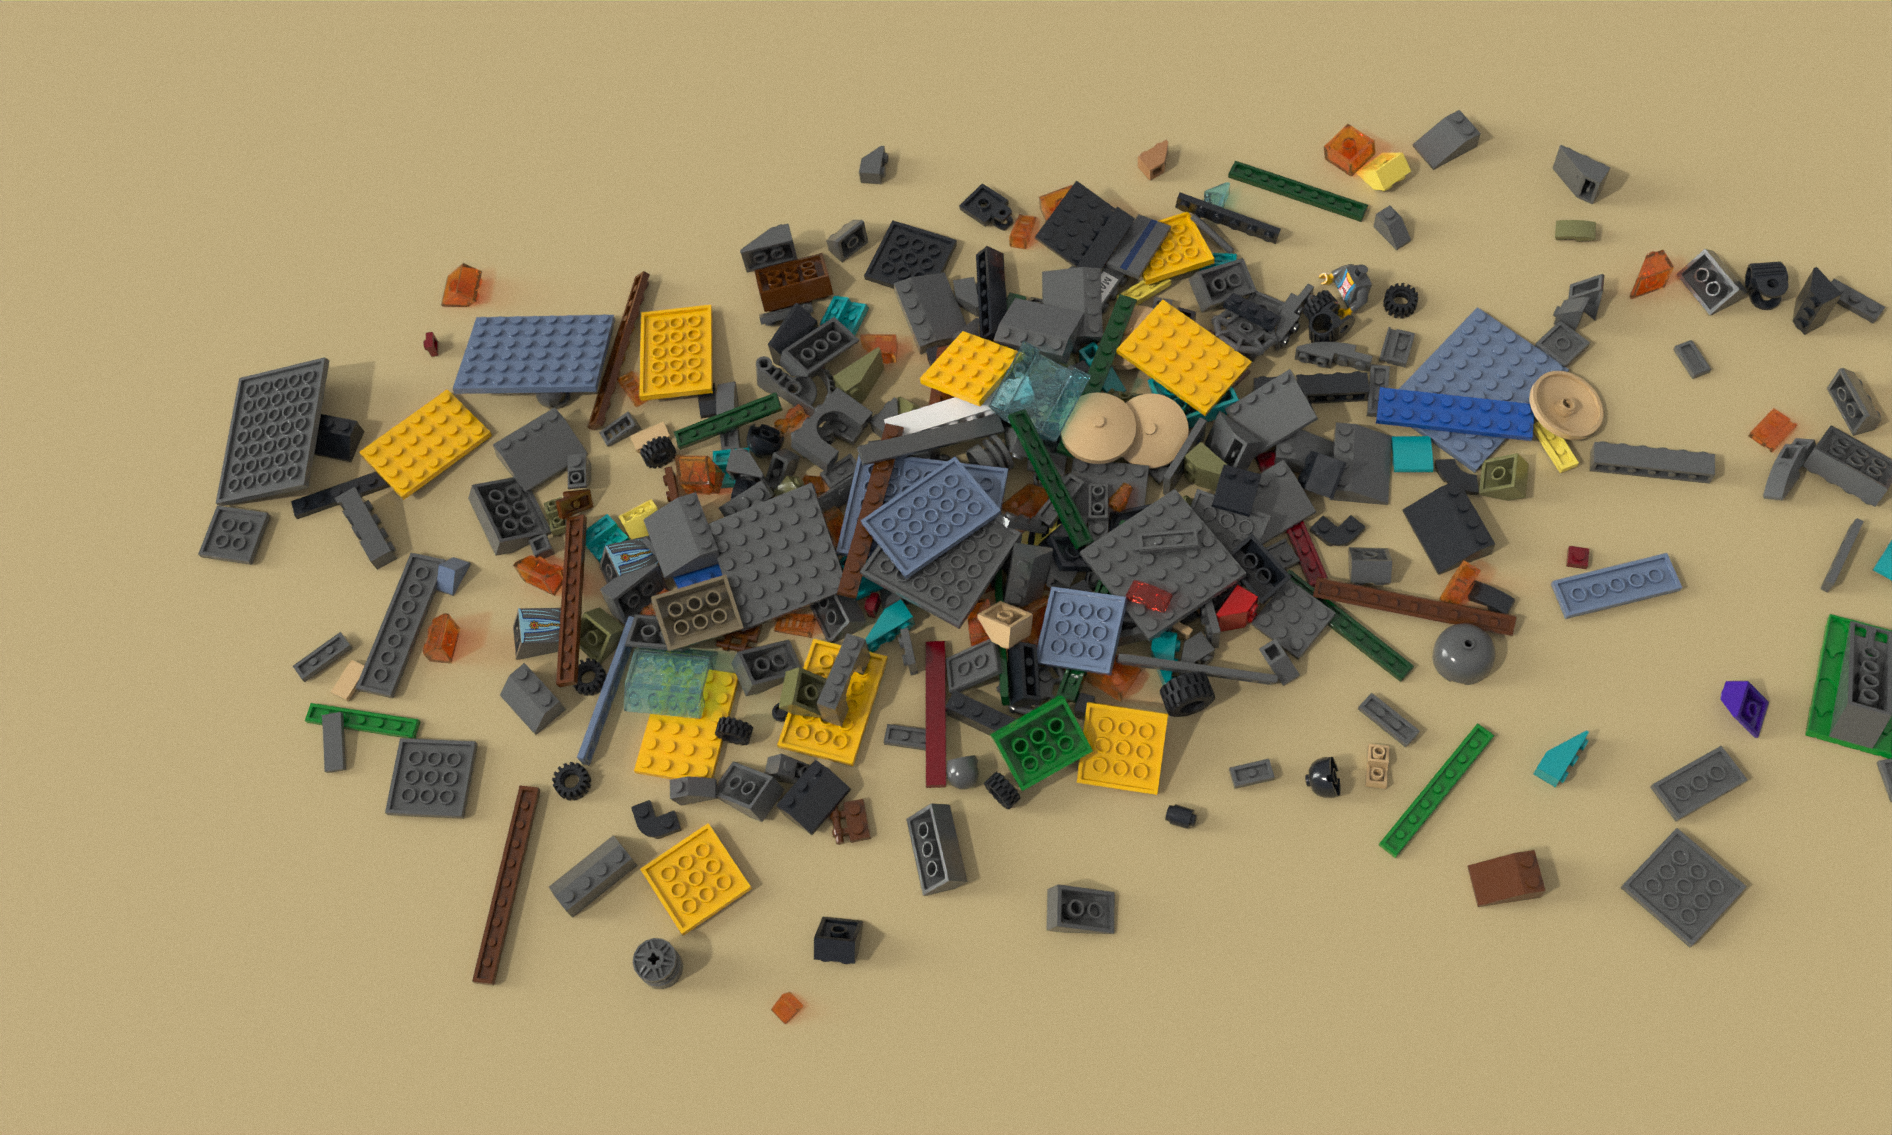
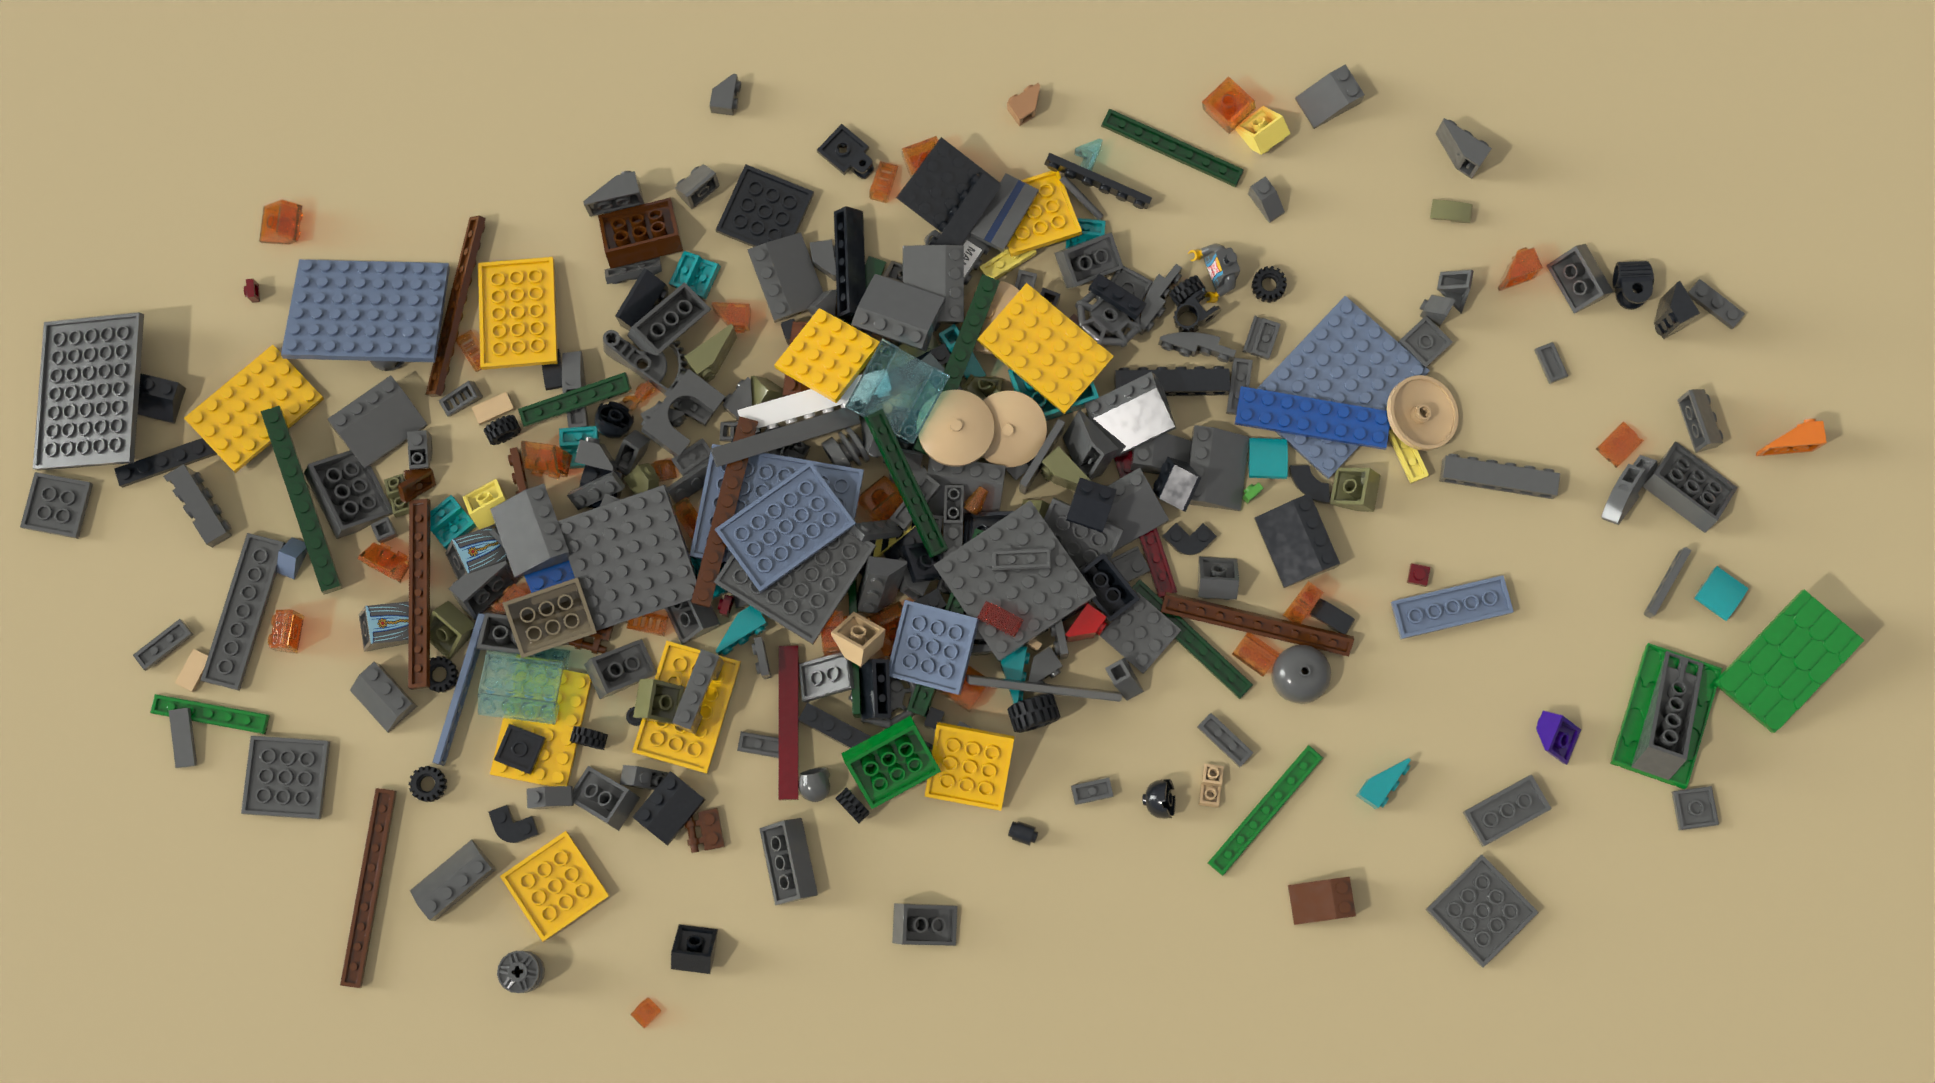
camera: 10 degrees left, 15 degrees up
(464, 520) = (301, 500): none -> dark green brick
(664, 744) = (520, 749): none -> black tile
(1398, 484) = (1251, 492): none -> bright green plate
(1414, 636) = (1255, 654): none -> clear orange plate

